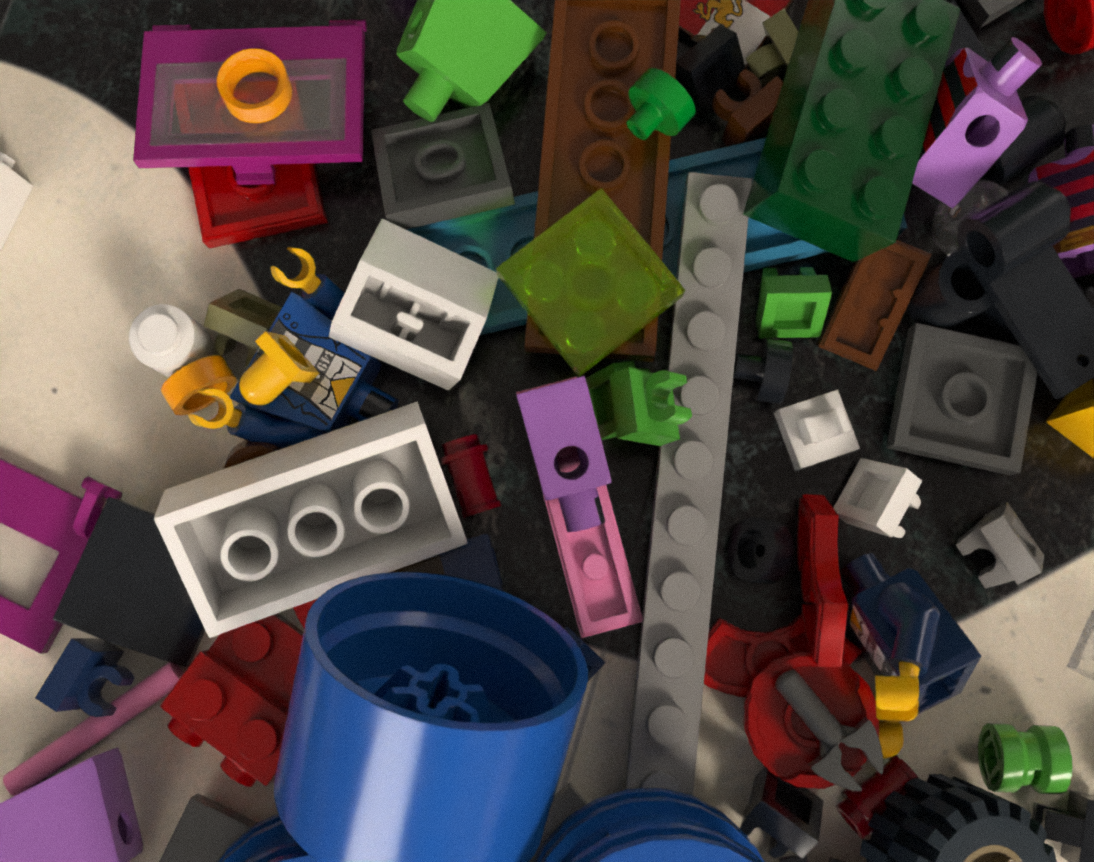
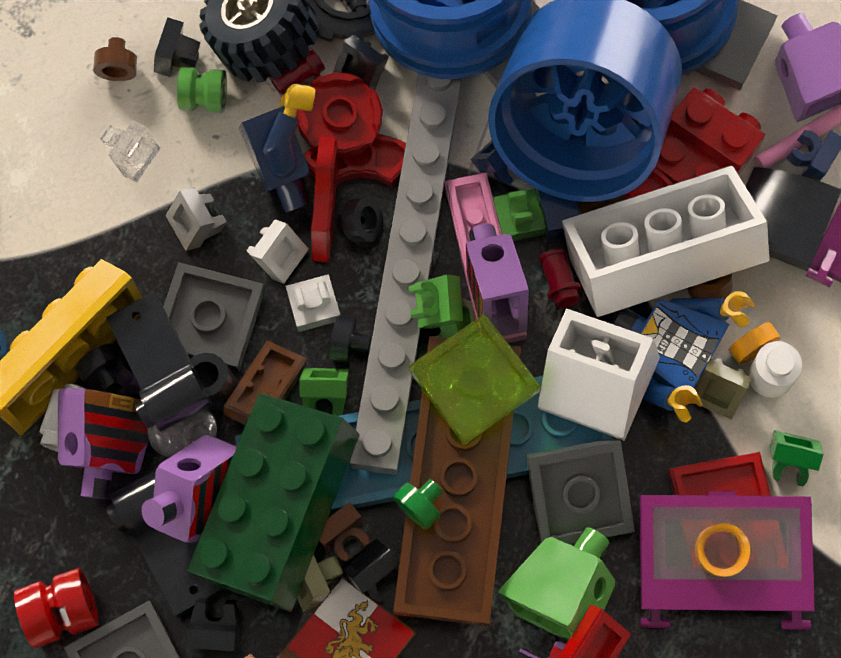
camera: 175 degrees left, 10 degrees down
(153, 237) = (795, 451): none -> green tile
(274, 370) = (693, 335): yellow piece -> none
(532, 572) = (520, 214): none -> bright green tile
(829, 732) = (332, 102): dark grey bar -> none

